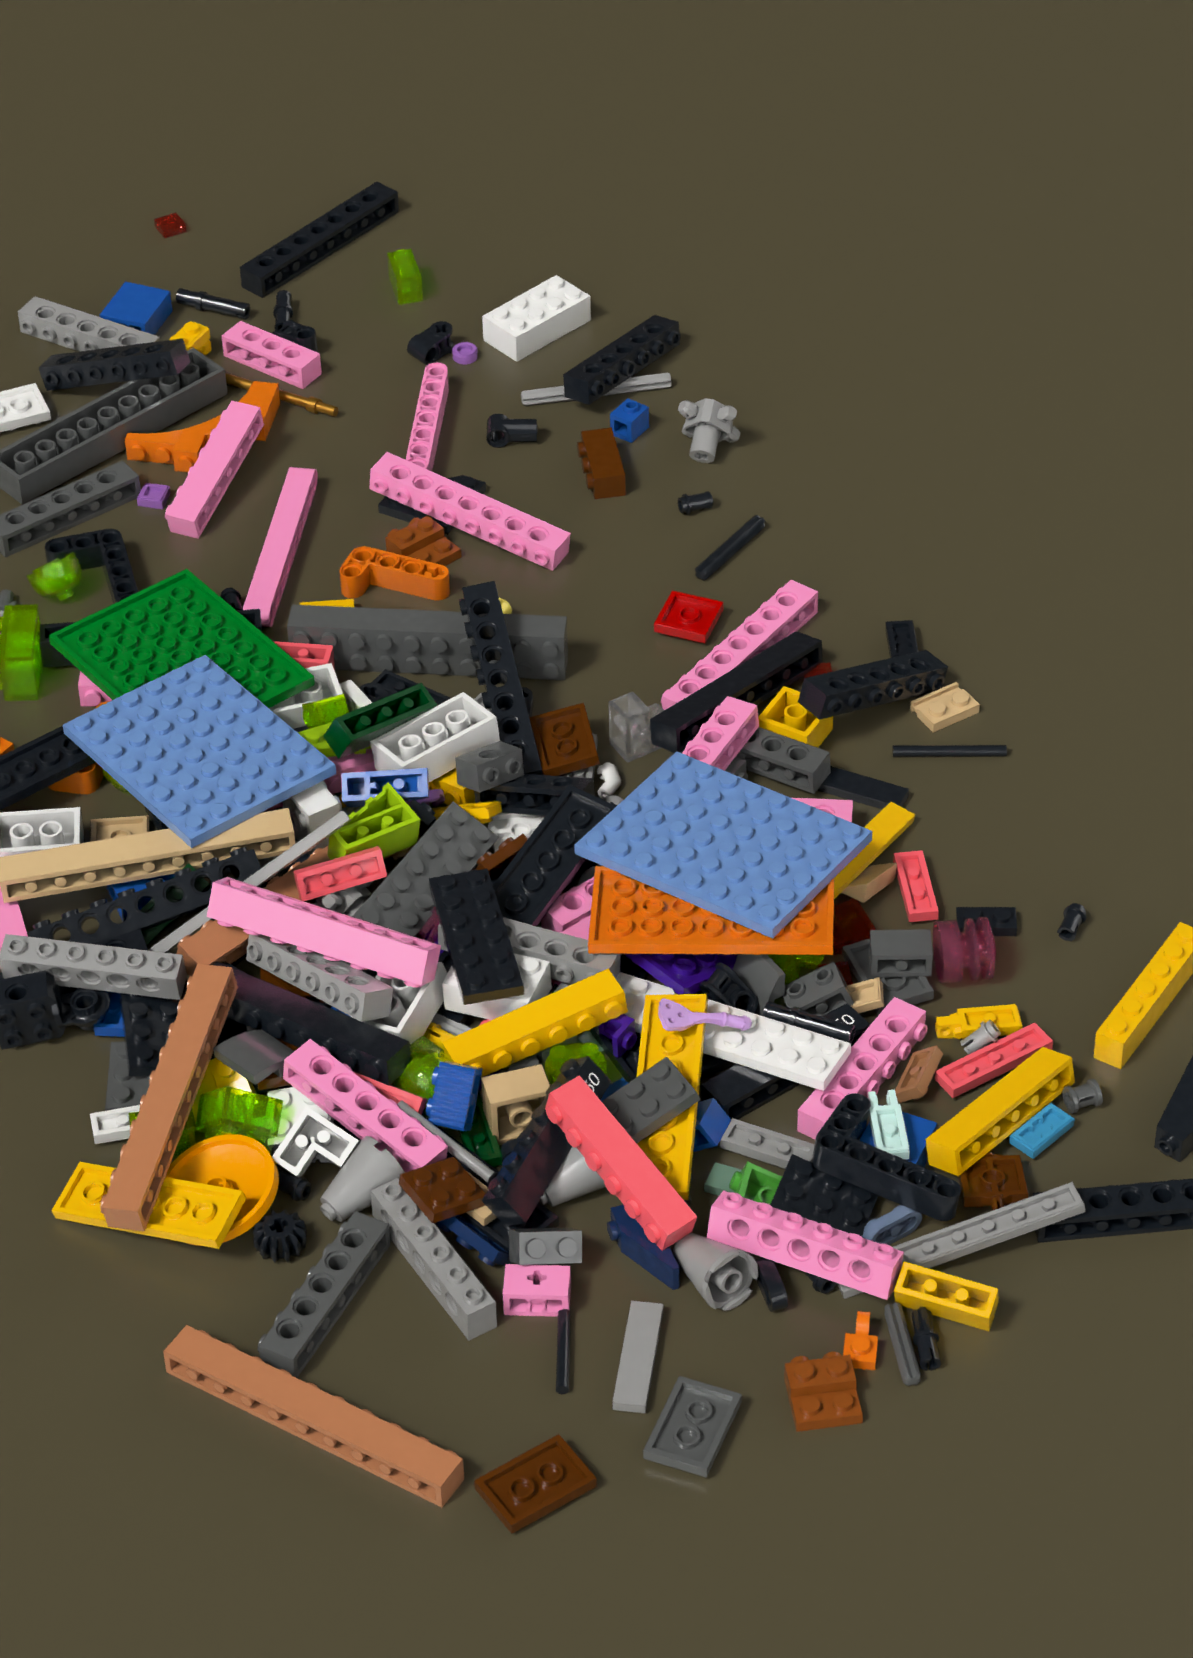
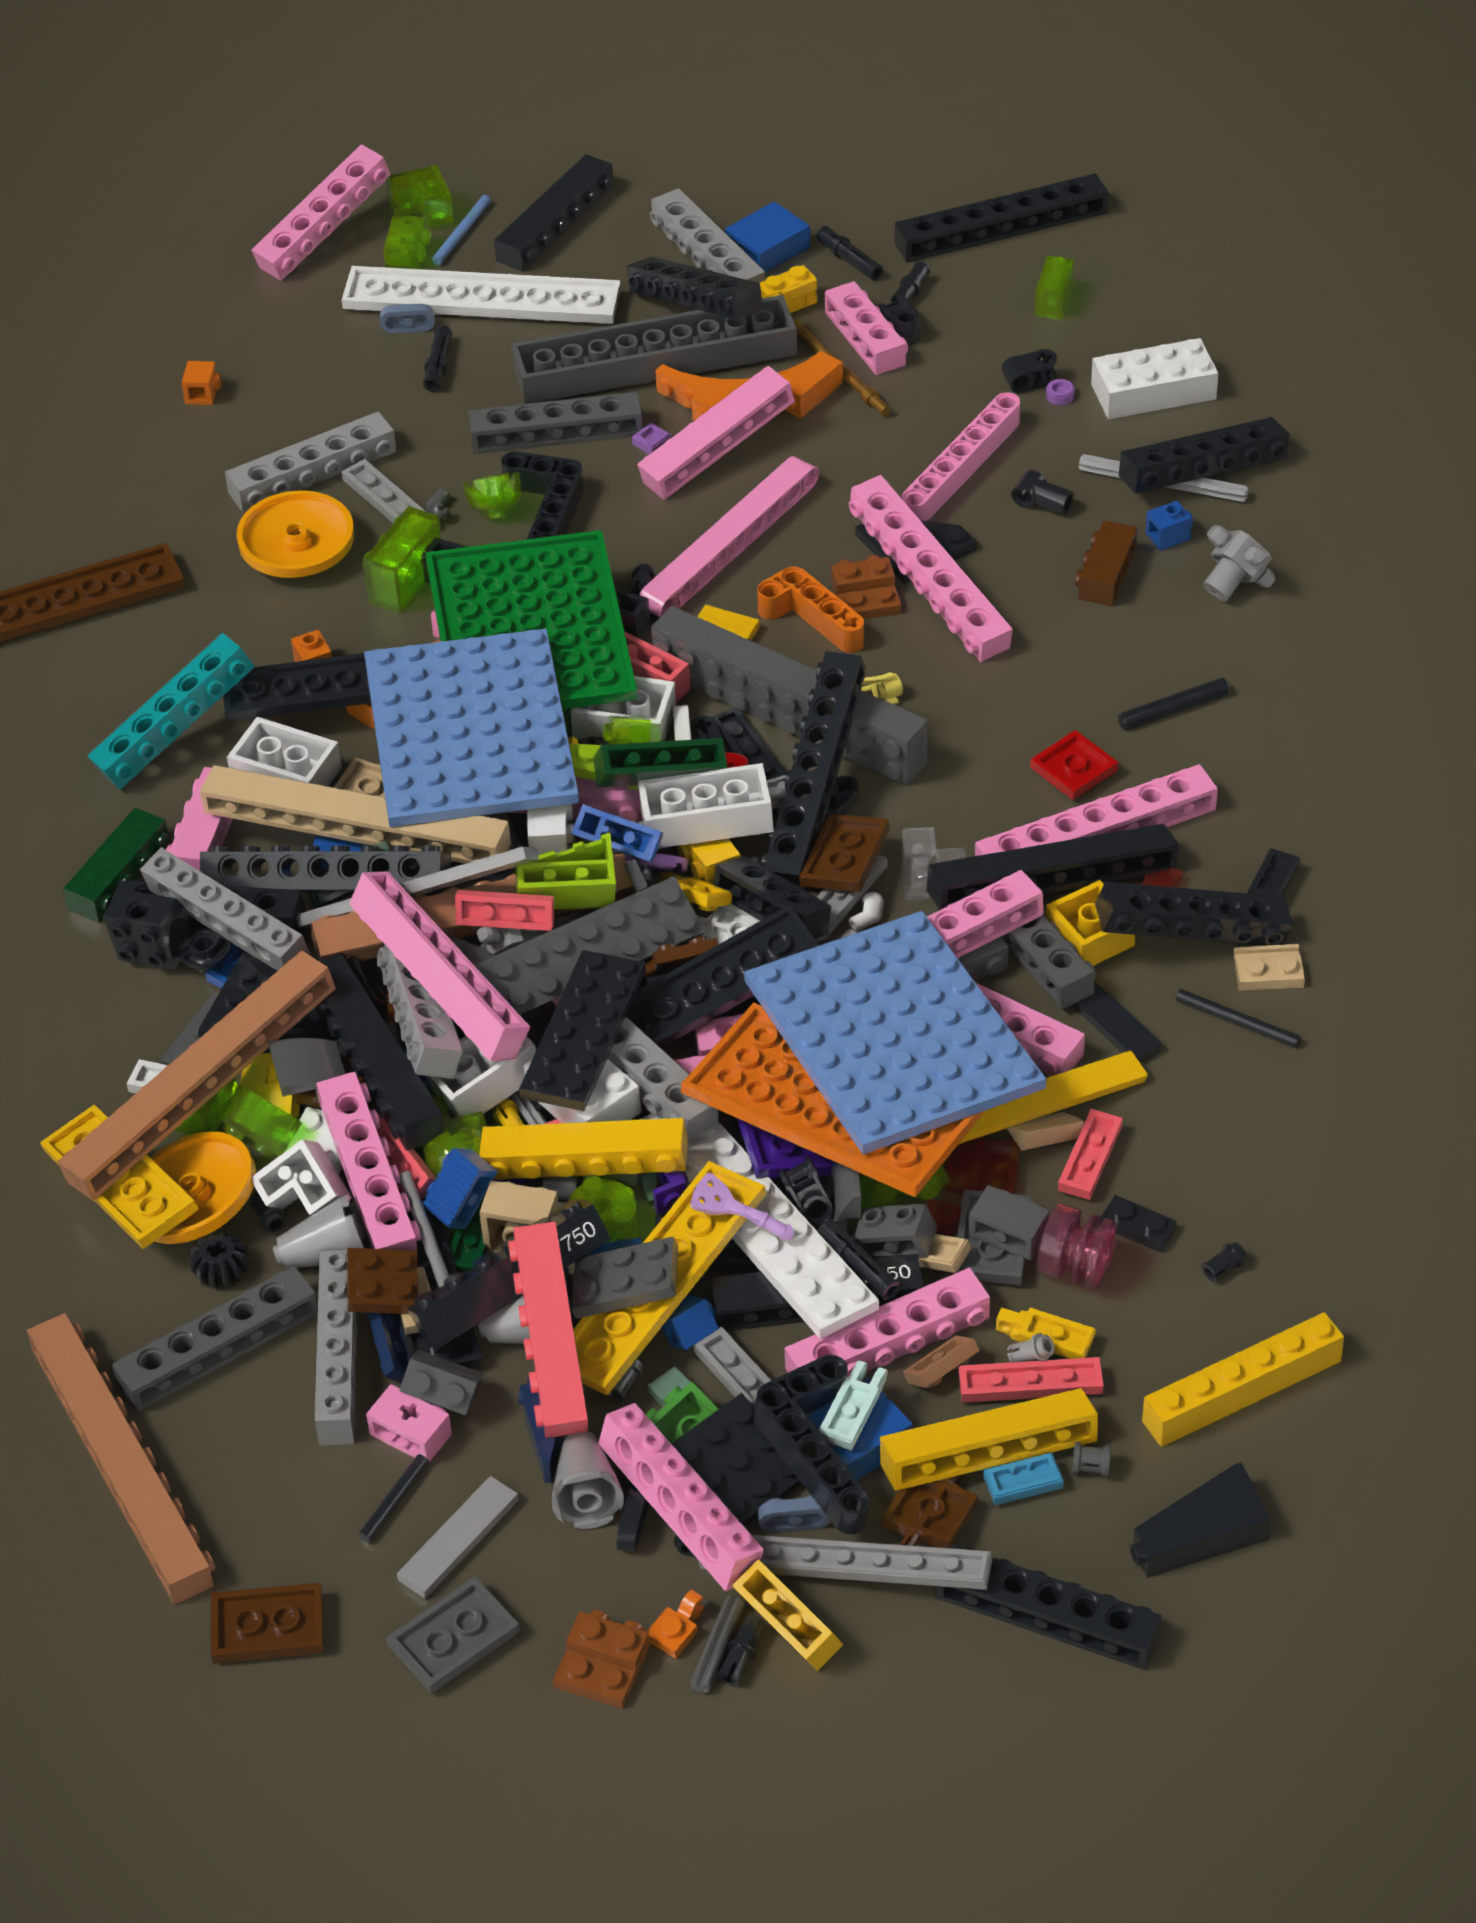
camera: 30 degrees right, 5 degrees up
(170, 225) = (869, 153): clear red tile -> none
(489, 766) = (738, 852): dark grey brick -> none
(695, 502) = (1172, 640): black pin -> none

